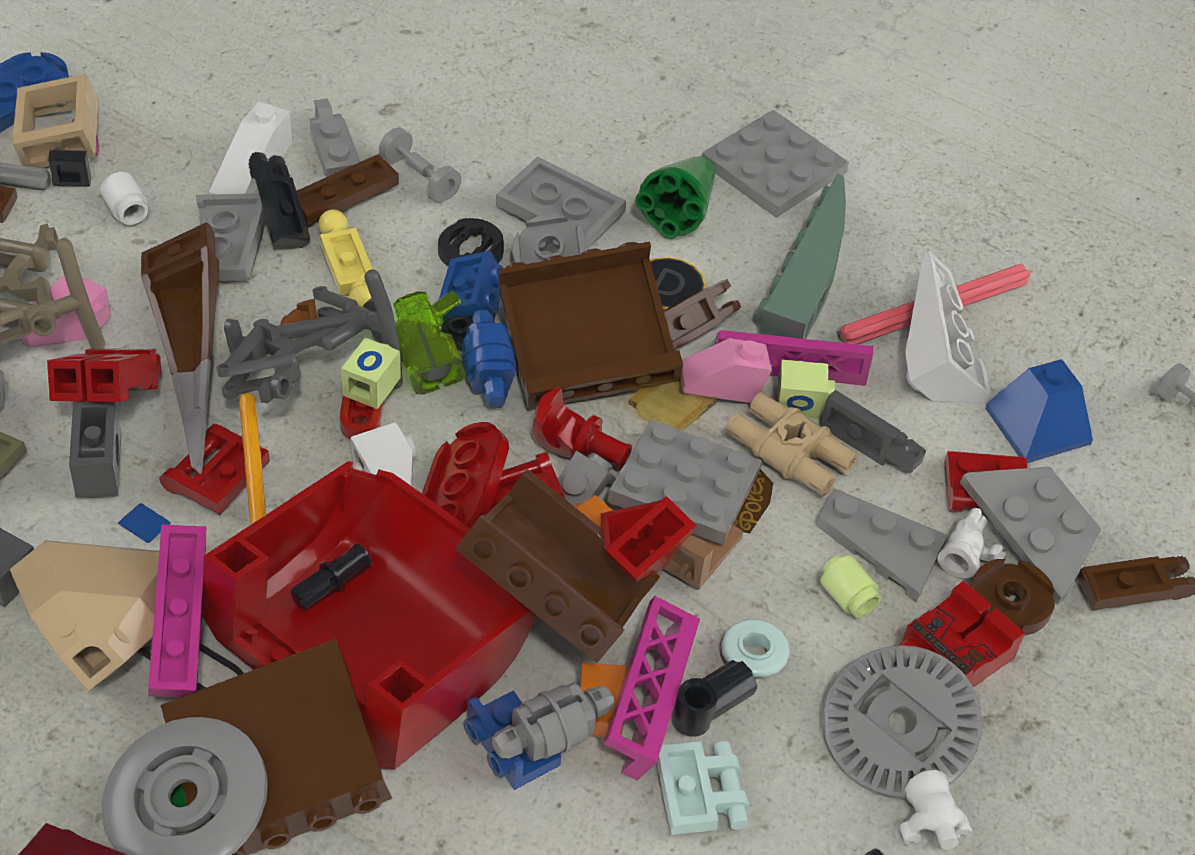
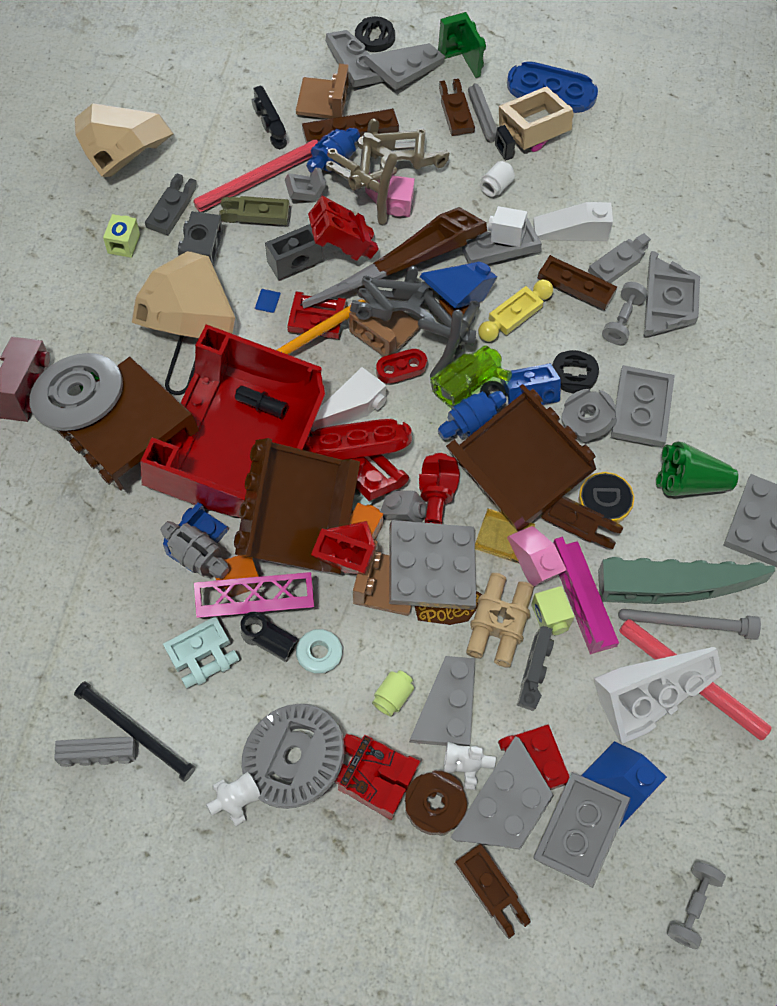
camera: 70 degrees right, 15 degrees up
(177, 611) = (164, 346): dark pink fence -> none
(224, 206) = (508, 226): none -> white brick
(275, 287) = (461, 283): none -> blue slope
(279, 200) = (536, 253): black hinge -> none
(307, 407) = (382, 335): none -> medium nougat bracket
(371, 373) = (417, 356): yellowish green brick -> none
(430, 117) = (671, 296): none -> light grey wing
(892, 235) = (748, 626): none -> light grey piece
(1094, 464) = (582, 829): none -> light grey plate

